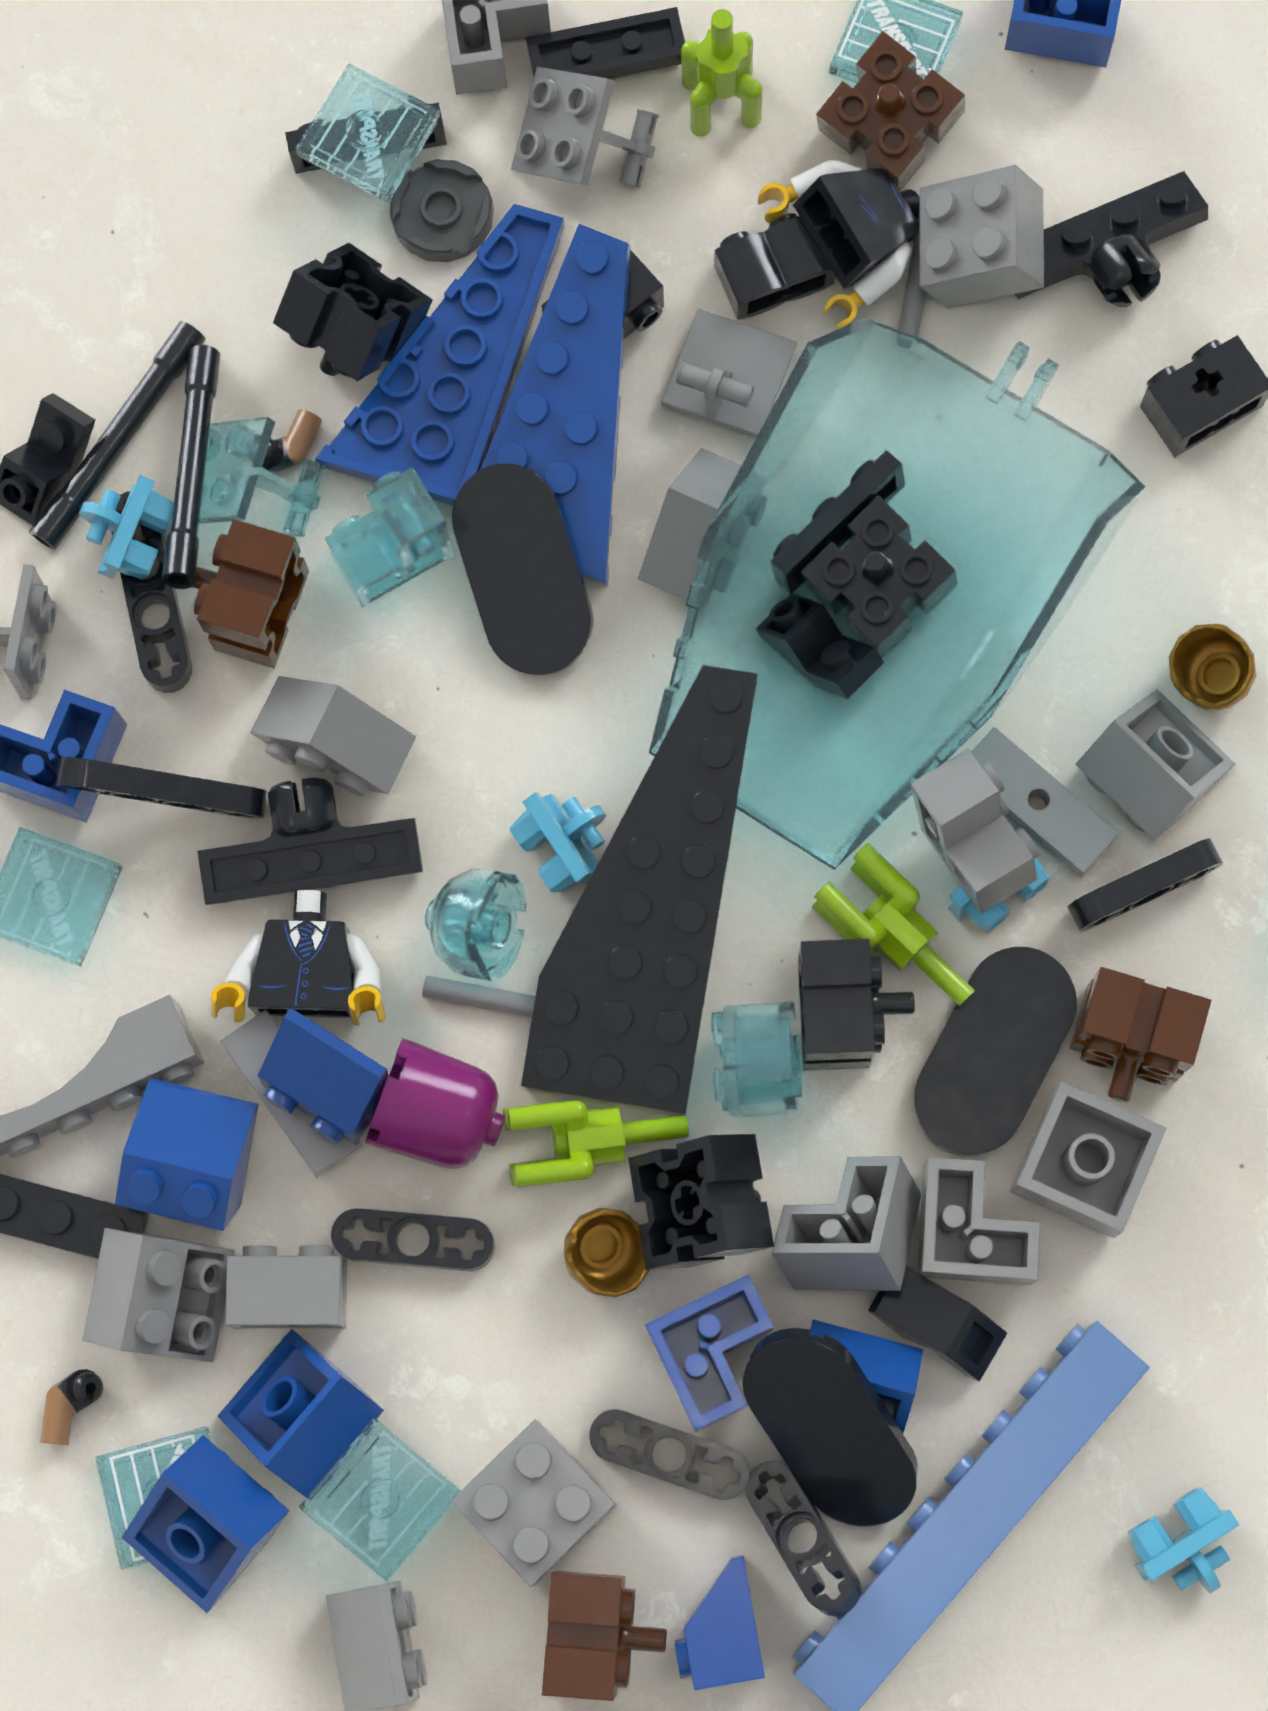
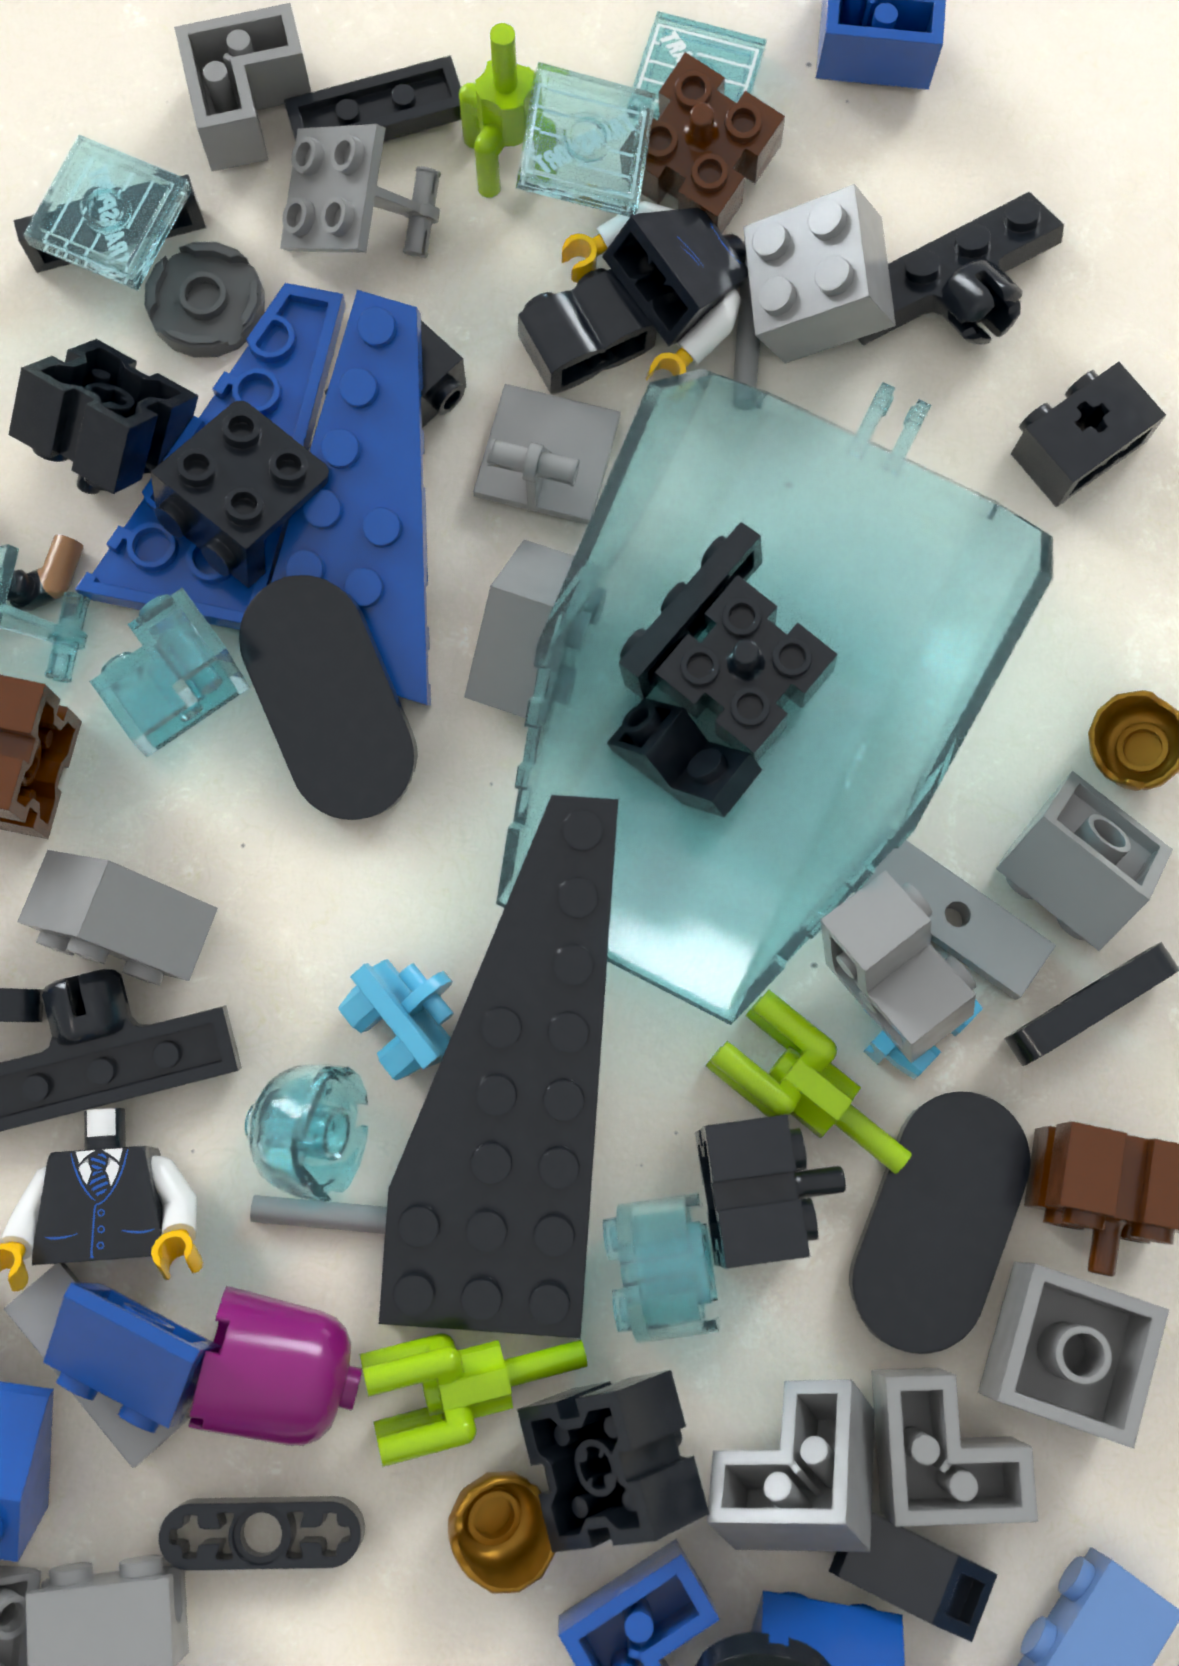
camera: 15 degrees left, 0 degrees up
(460, 385) = (235, 488): none -> black bracket
(787, 106) = (586, 140): none -> clear light blue tile

